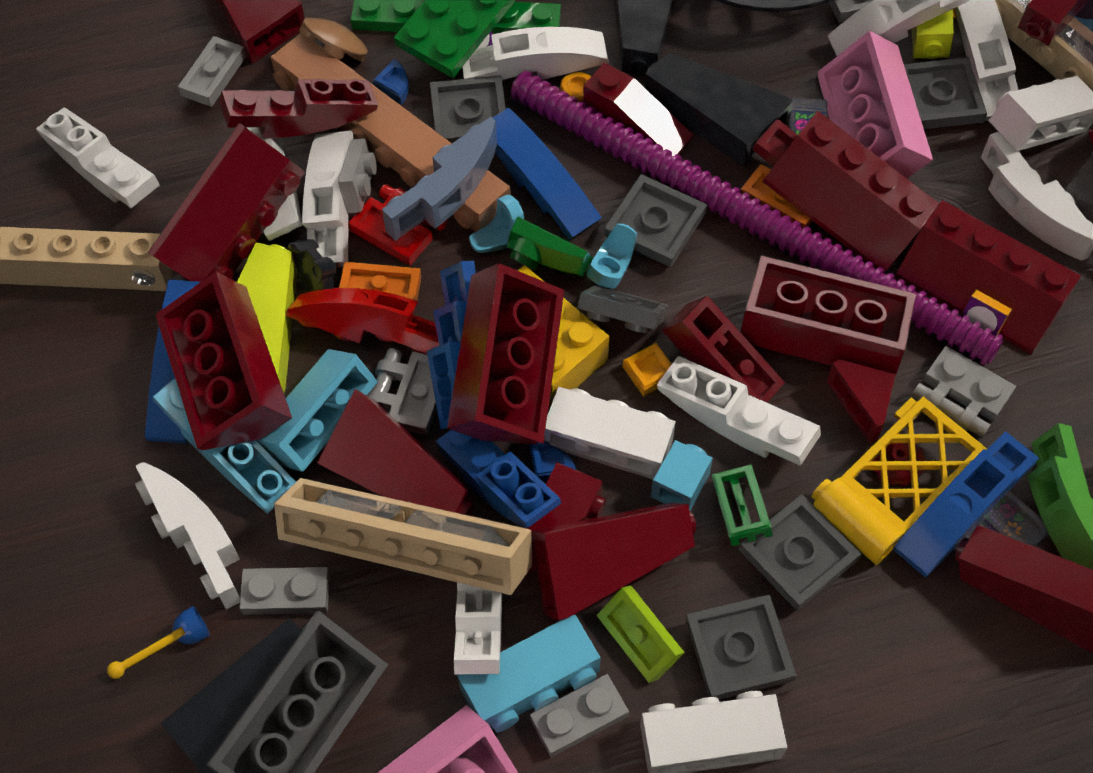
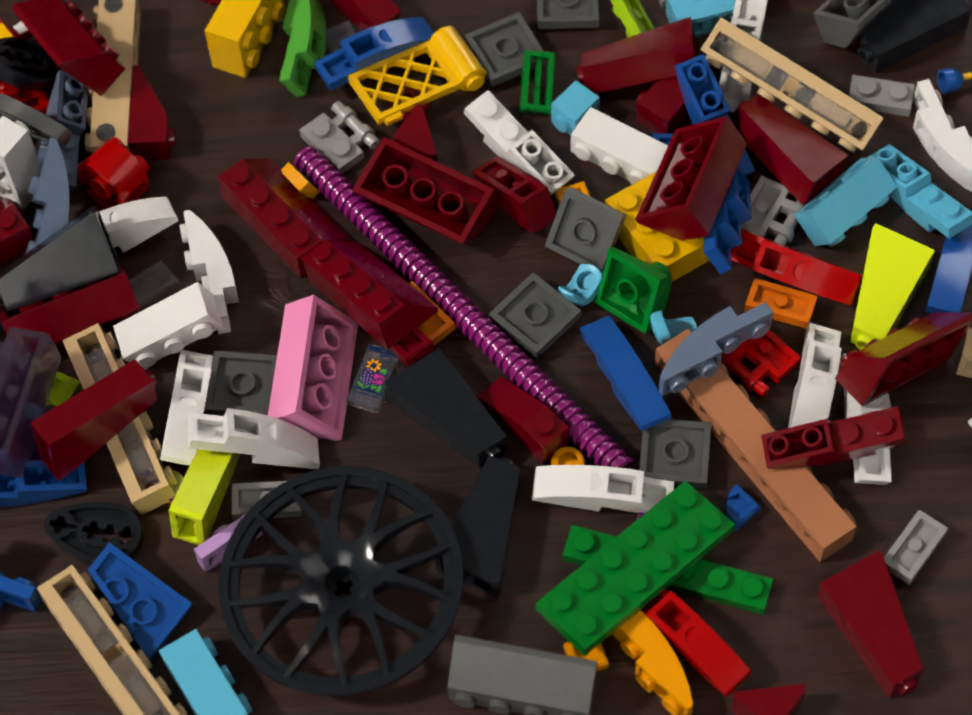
camera: 165 degrees left, 0 degrees up
(222, 364) = (916, 219): dark red slope -> none
(313, 269) = (843, 330): black piece -> none
(336, 37) = (791, 546): medium nougat dish -> none
(356, 175) = (784, 404): light grey plate -> none

